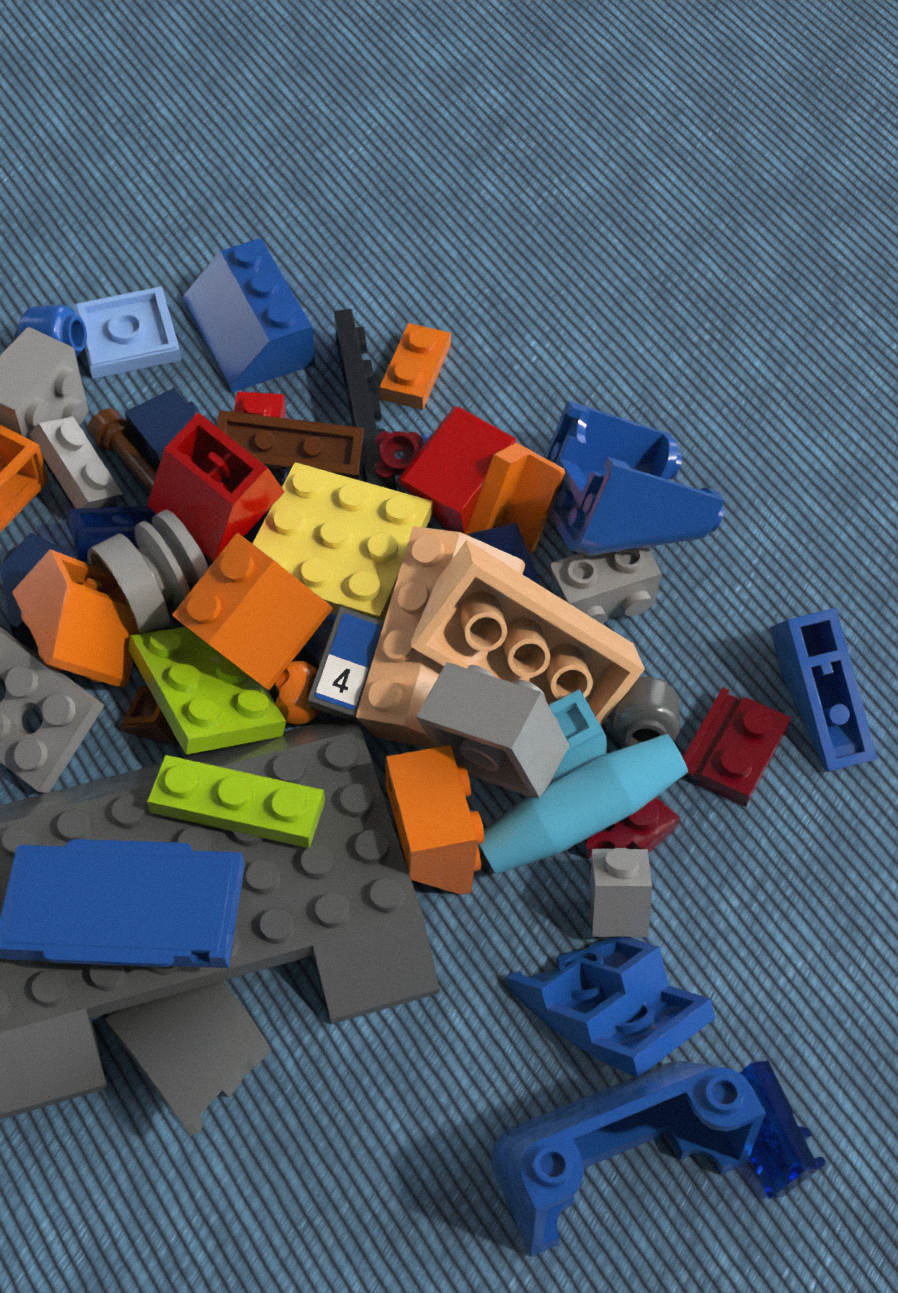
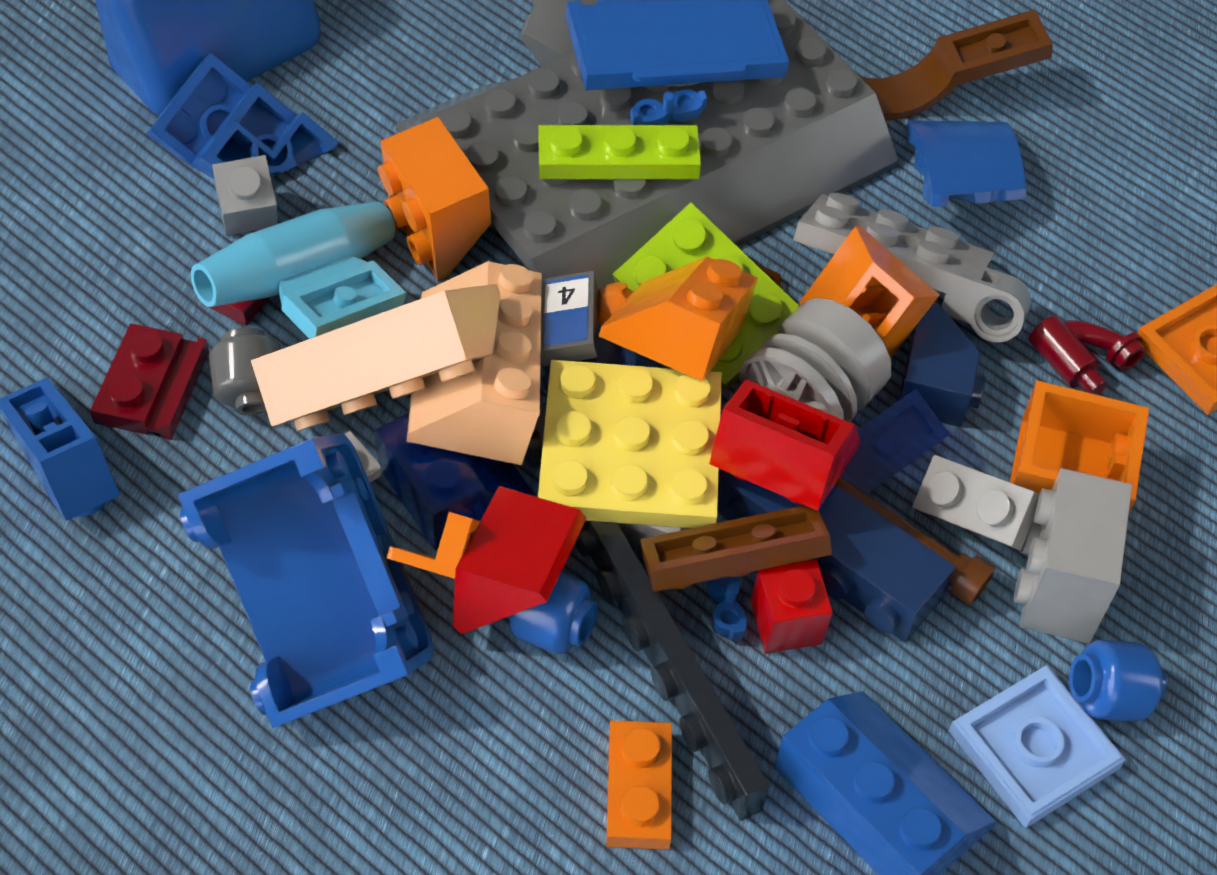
camera: 160 degrees right, 0 degrees up
(194, 835) = (676, 107): none -> blue piece
(389, 444) = (599, 565): dark red plate -> none
(495, 728) = (389, 232): light grey brick -> none
(781, 1148) = (82, 59): clear blue plate -> none

